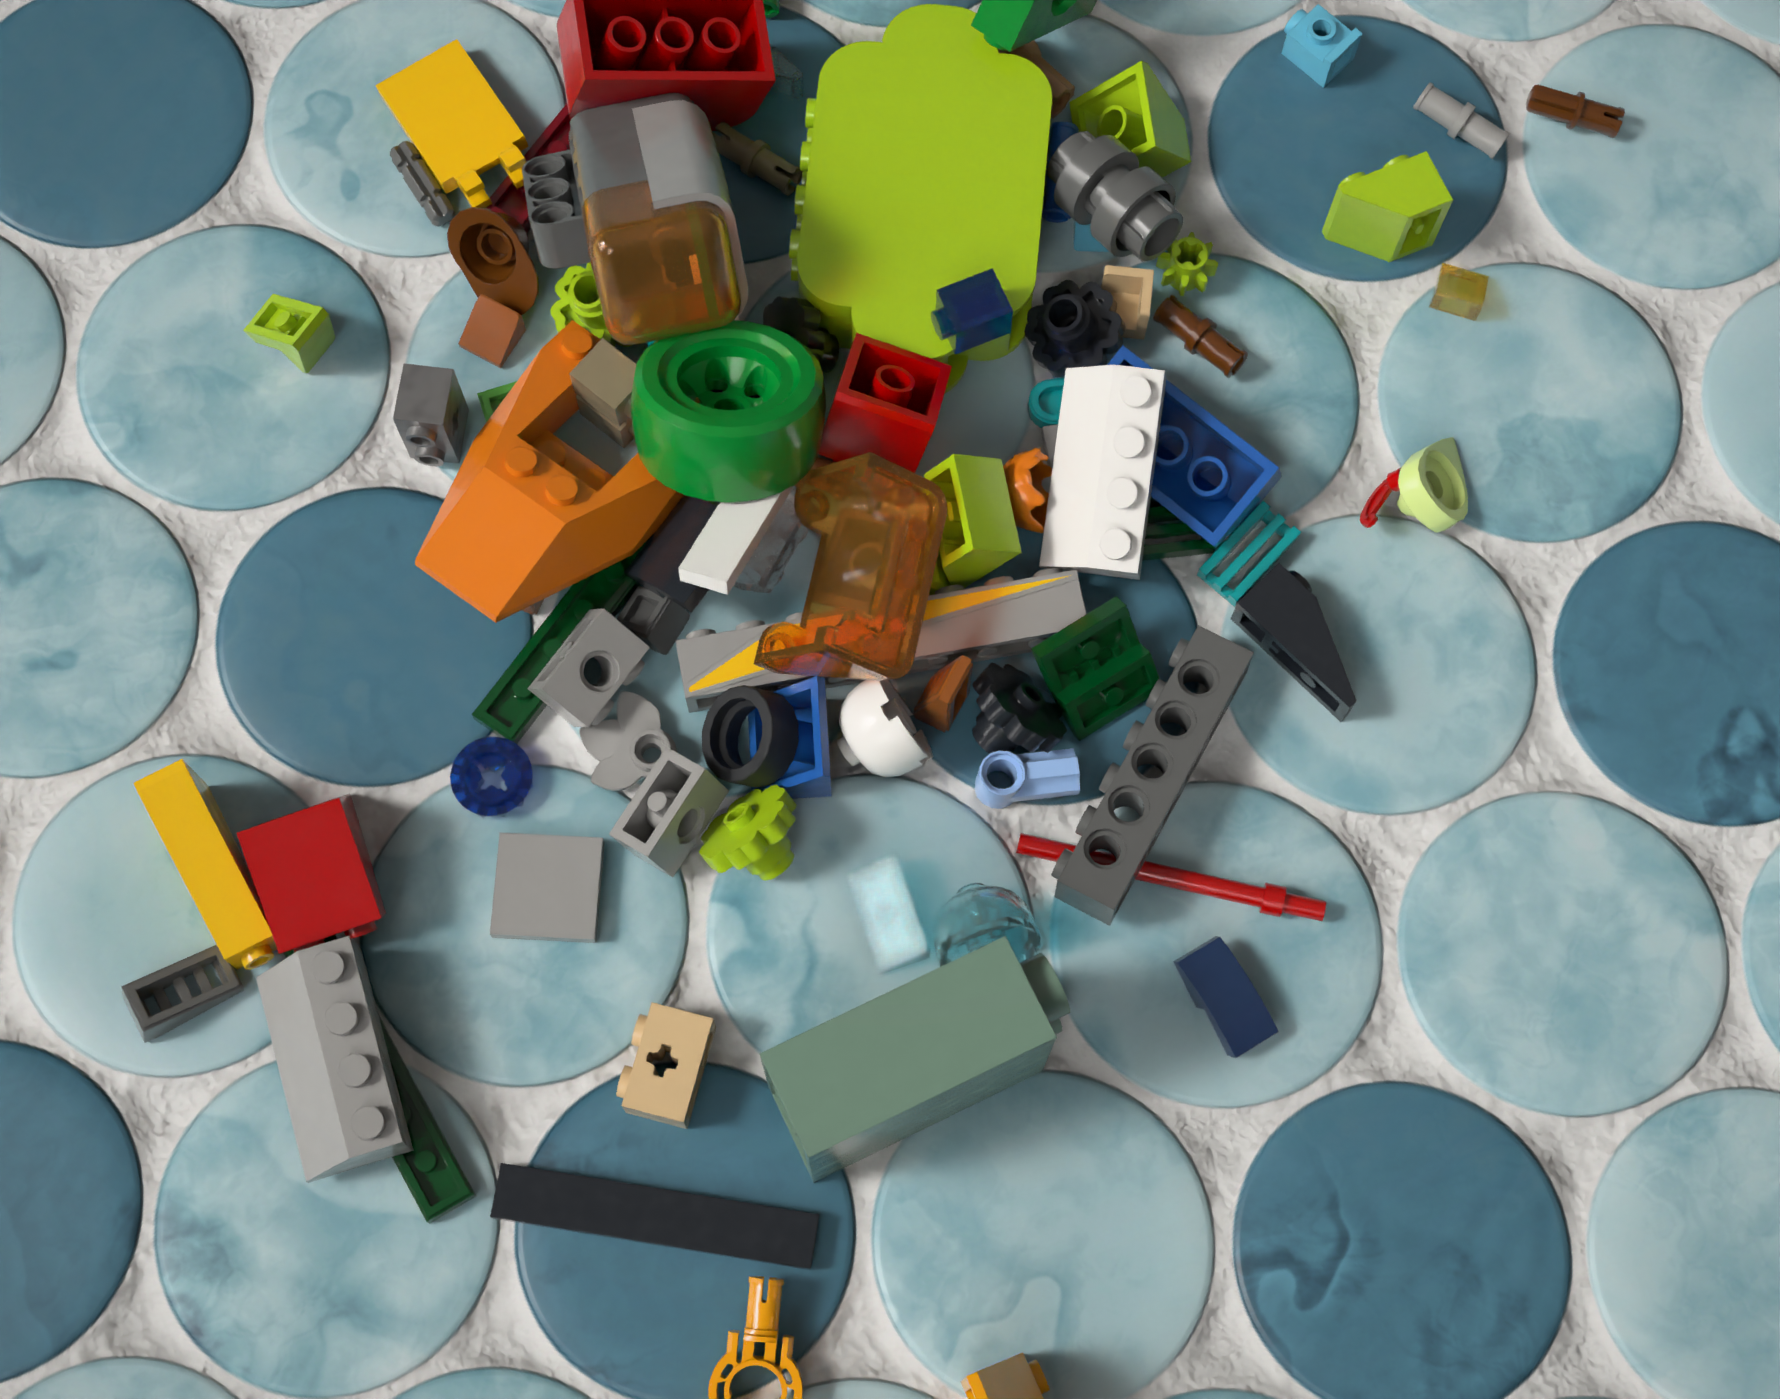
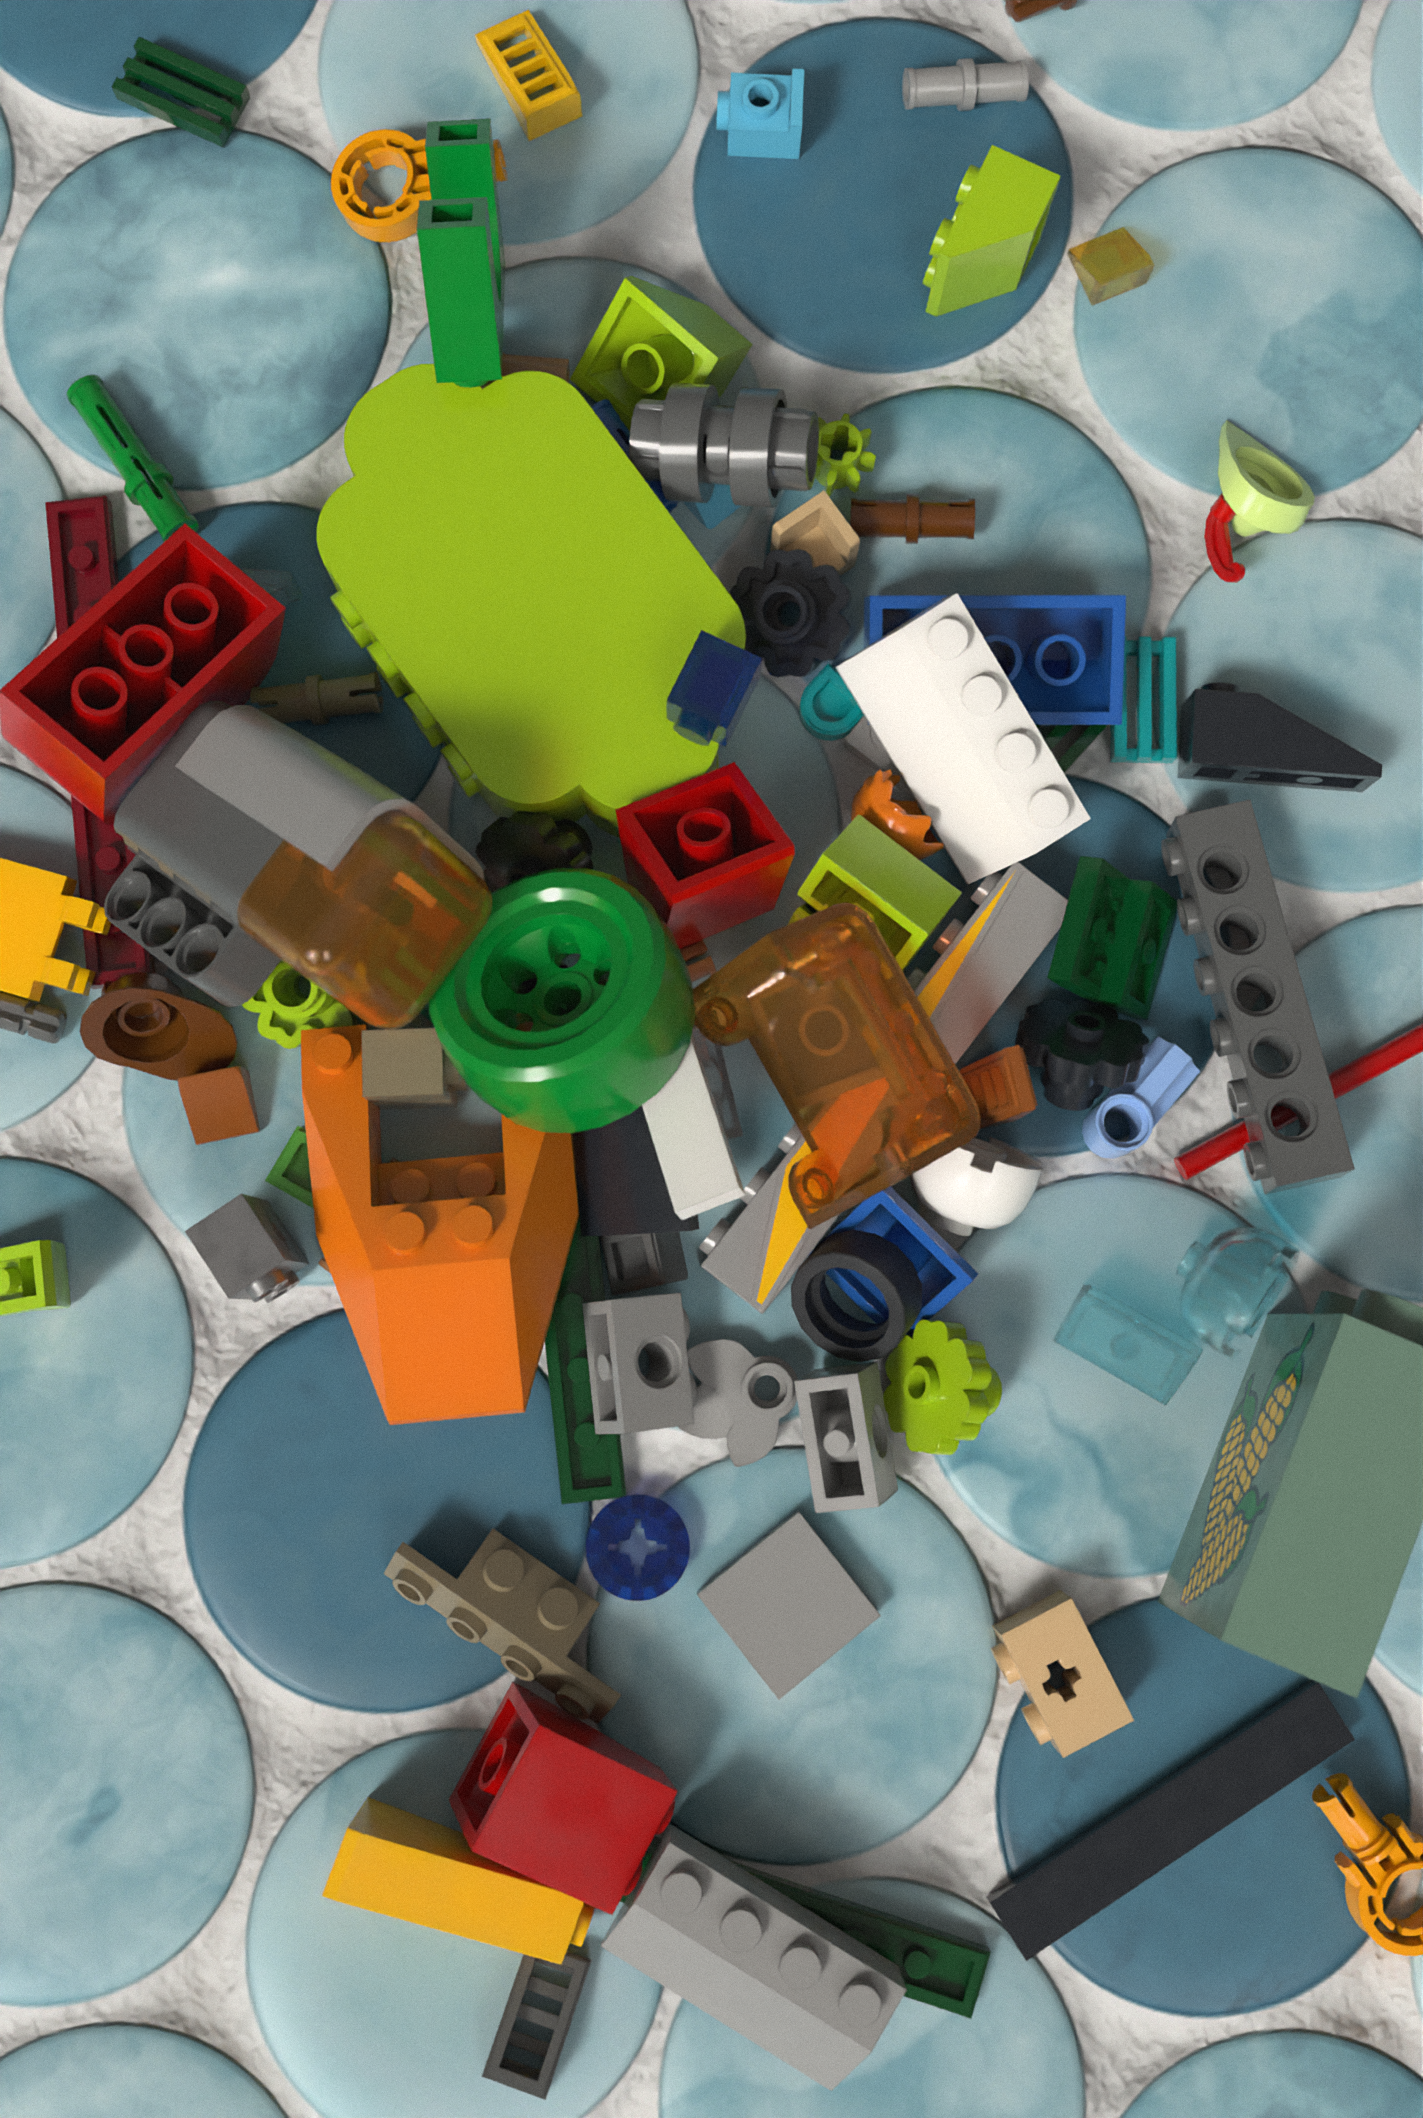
camera: 45 degrees left, 10 degrees up
(388, 751) = (515, 1611): none -> dark tan bracket

